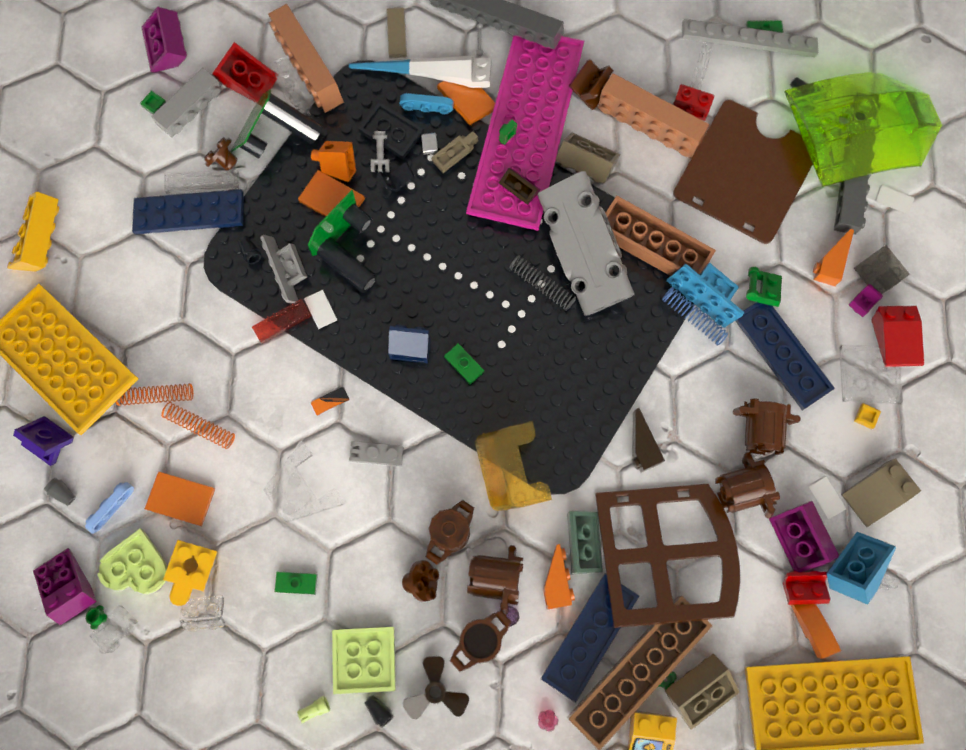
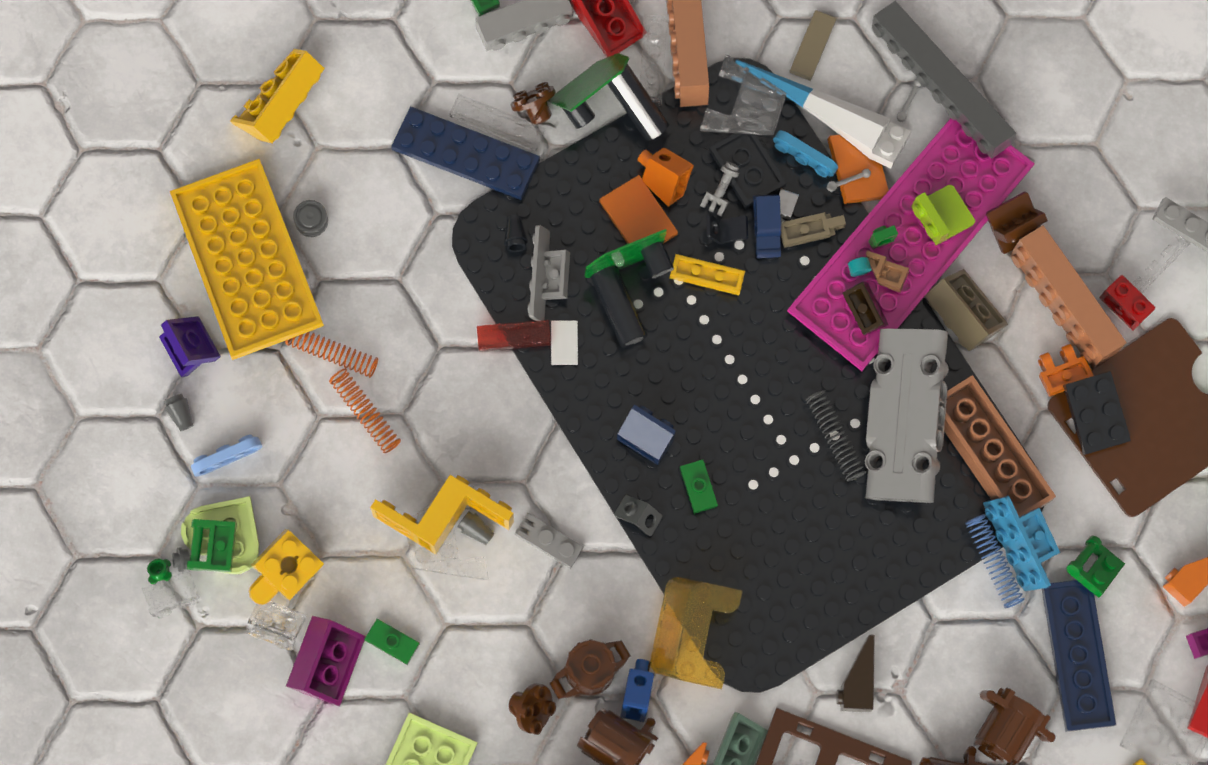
camera: 20 degrees right, 0 degrees up
(63, 587) = (138, 520): magenta slope -> none
(96, 308) = (310, 218): none -> dark grey wheel
(109, 600) = (180, 559): none -> dark grey plate
(132, 577) = (219, 549): none -> green plate
(180, 498) = (307, 484): orange tile -> none
(252, 622) = (325, 660): none -> magenta slope
(288, 471) = (443, 513): none -> yellow bracket
(318, 470) = (475, 528): none -> dark grey cone
(329, 400) = (524, 454): sticker -> none
(377, 88) = (755, 107): none -> clear wing
(398, 215) = (707, 274): none -> yellow tile
(424, 161) = (767, 225): none -> dark blue piece
(429, 403) = (636, 512): none -> dark grey bracket
(455, 115) = (831, 186): none -> light grey hinge
(493, 536) = (637, 697): none -> blue torso
(501, 159) = (859, 266): none -> teal piece
(522, 155) = (887, 273): none -> medium nougat slope
(540, 99) = (942, 214): none -> lime bracket
(677, 169) = (1072, 370): none -> orange plate
(711, 183) = (1096, 412): none -> black plate

